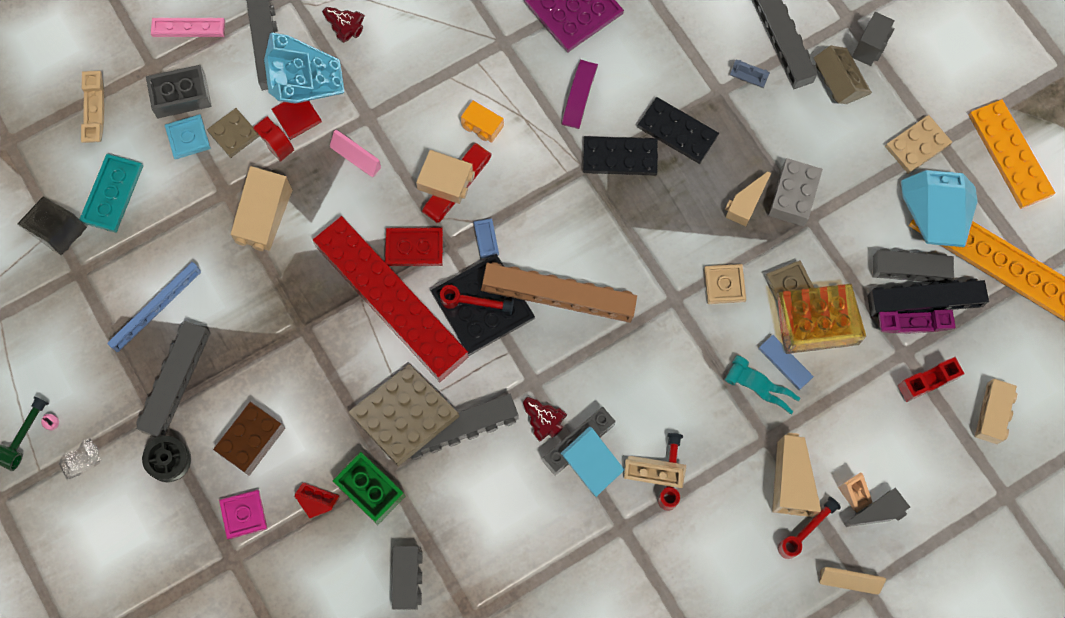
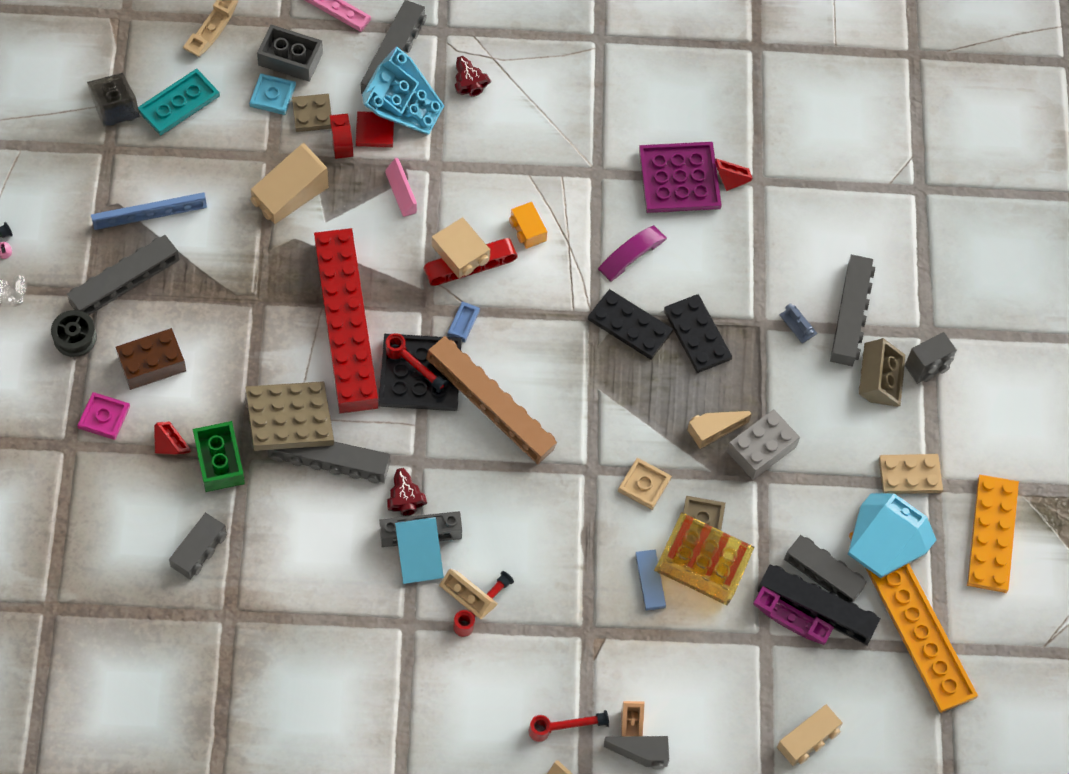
camera: 30 degrees right, 10 degrees down
(414, 247) = (396, 291): red plate -> none
(758, 383) = (612, 579): teal flag -> none
(794, 479) = (579, 675): tan slope -> none
(930, 380) = (783, 673): red arch -> none

